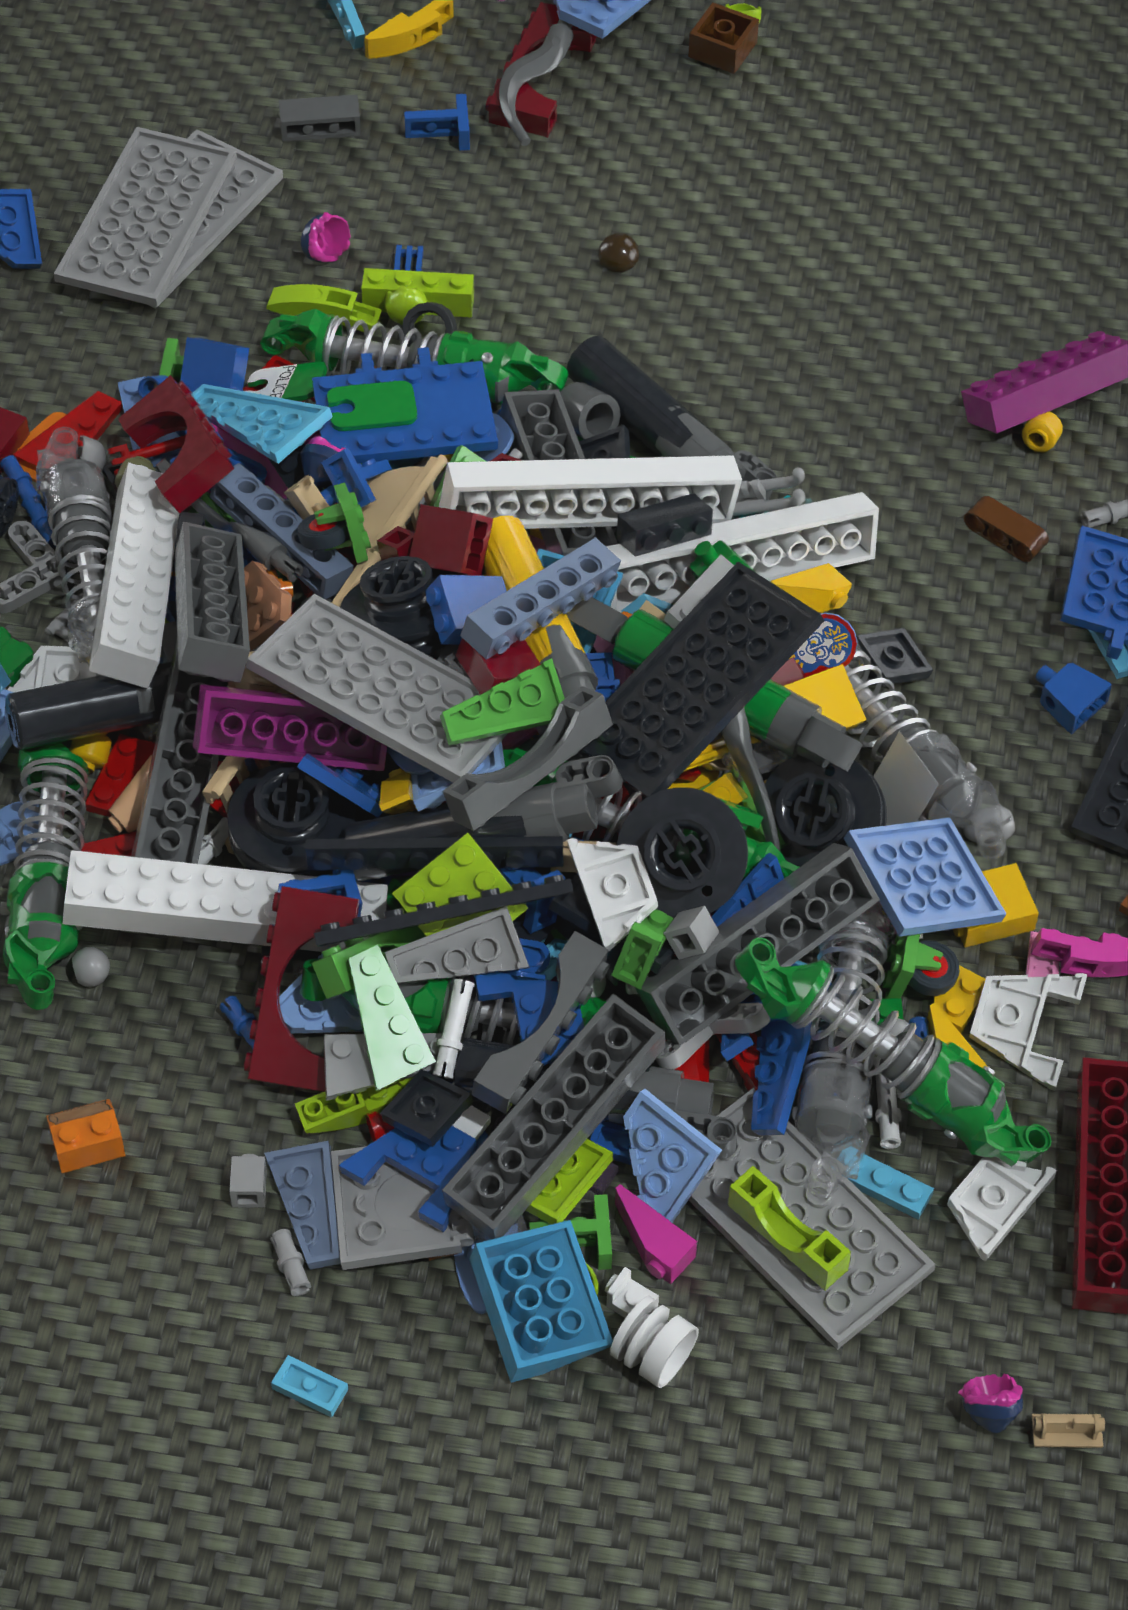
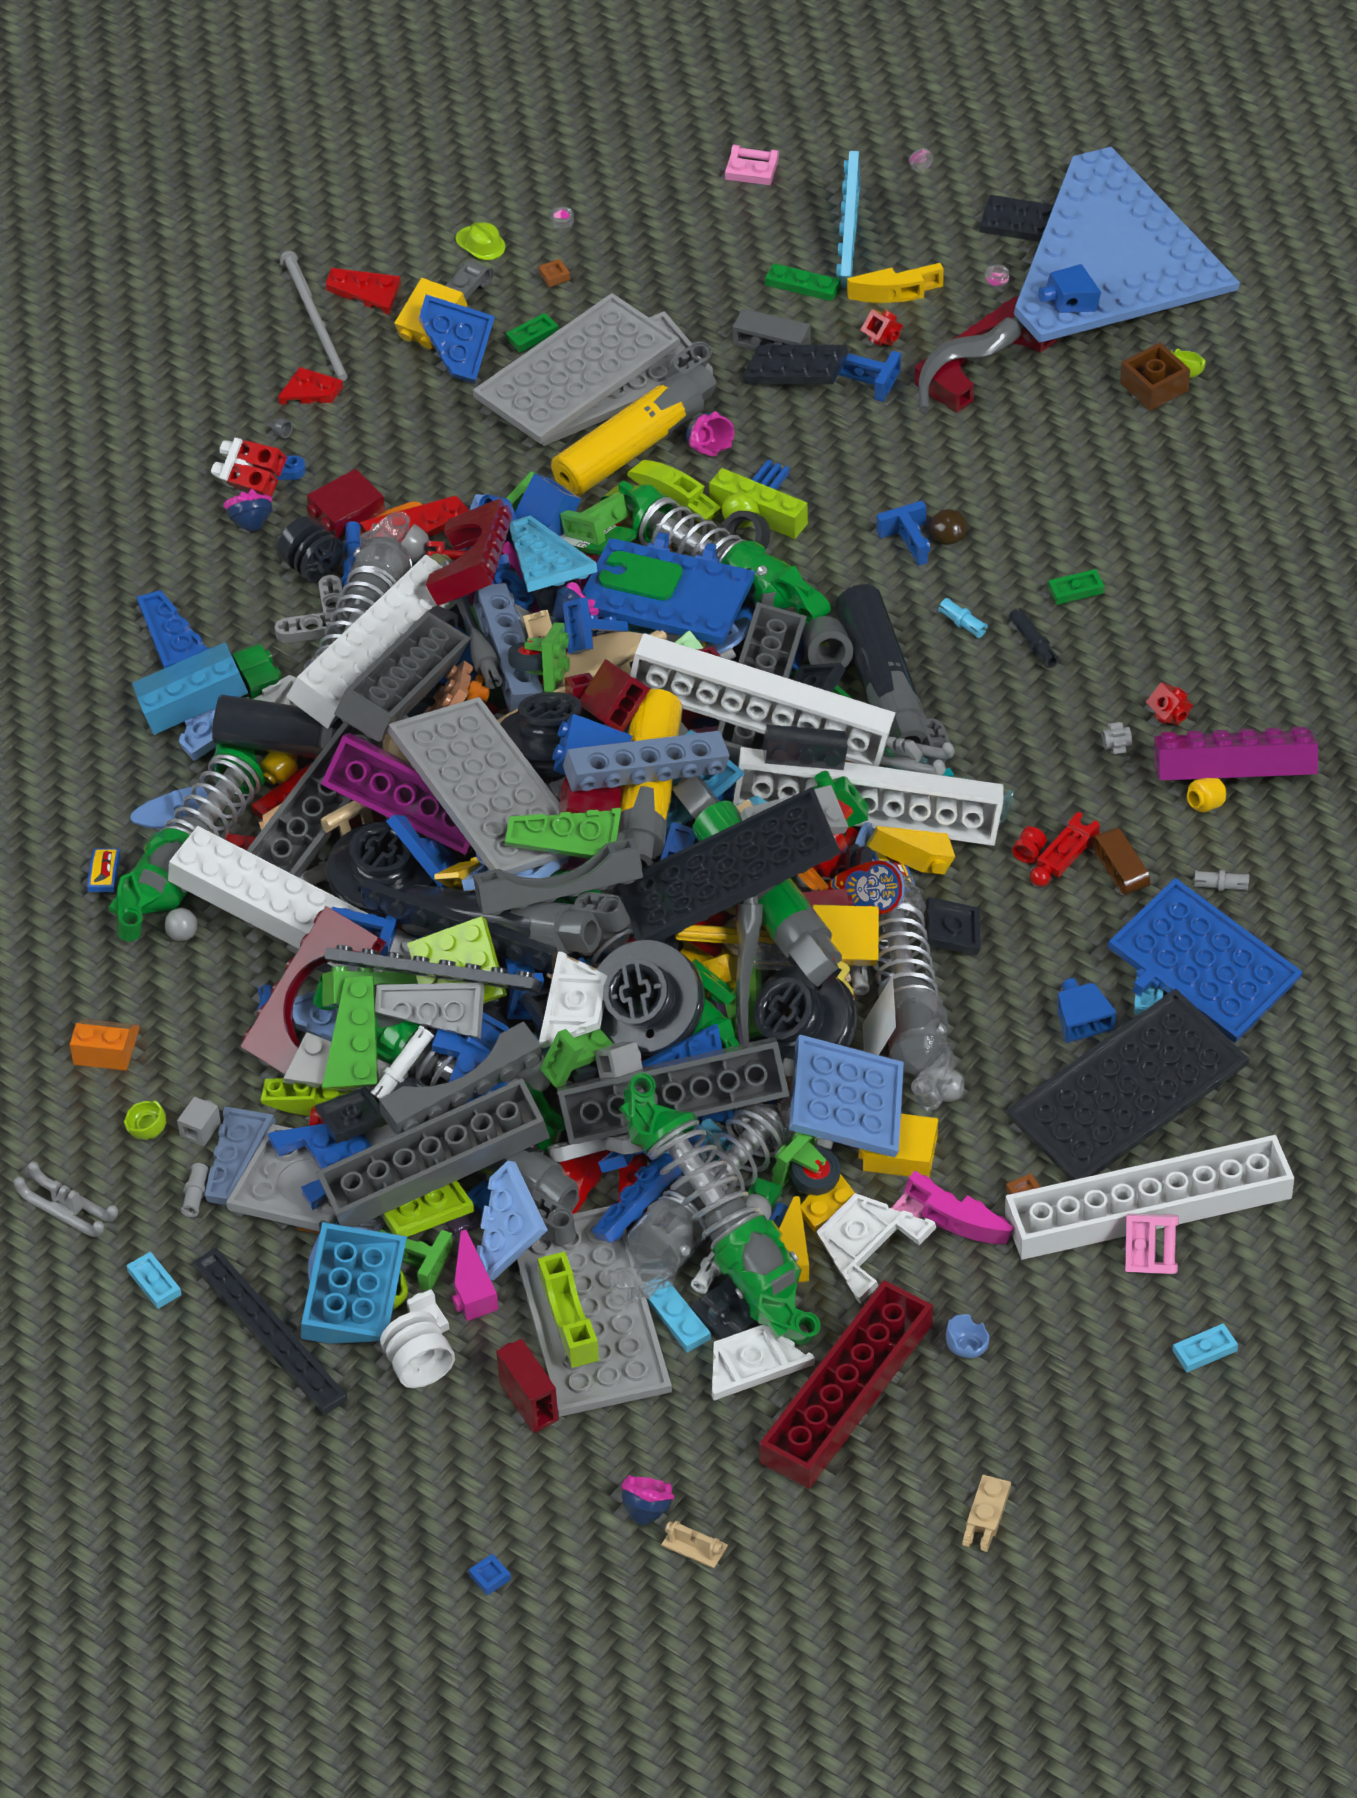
camera: 30 degrees right, 5 degrees down
(26, 68) = (562, 217): none -> clear tile
(55, 126) = (554, 273): none -> dark orange plate
(71, 195) = (531, 332): none -> green plate
(155, 1339) = (65, 1203): none -> light grey piece
(188, 1204) = (145, 1120): none -> lime hair
(248, 251) = (638, 424): none -> yellow piece
(276, 369) = (591, 523): none -> bright green bracket
(313, 56) = (802, 282): none -> green plate
(366, 139) = (795, 364): none -> black plate
(420, 71) = (882, 327): none -> red brick
(474, 1389) = (270, 1331): none -> black plate
(577, 263) = (906, 522): none -> blue bracket
(693, 339) = (962, 617): none -> medium azure pin
(781, 269) = (1076, 586): none -> green plate
(781, 338) = (1039, 644): none -> black pin
(794, 1330) = (527, 1385): none -> dark red brick
(883, 1563) = (489, 1574): none -> blue plate
(909, 545) = (1029, 844): none -> red wheel
(922, 406) = (1117, 738): none -> light grey gear
(933, 1156) = (724, 1311): none -> black hinge
(942, 354) = (1170, 704): none -> red brick
(944, 539) = (1064, 850): none -> red plate

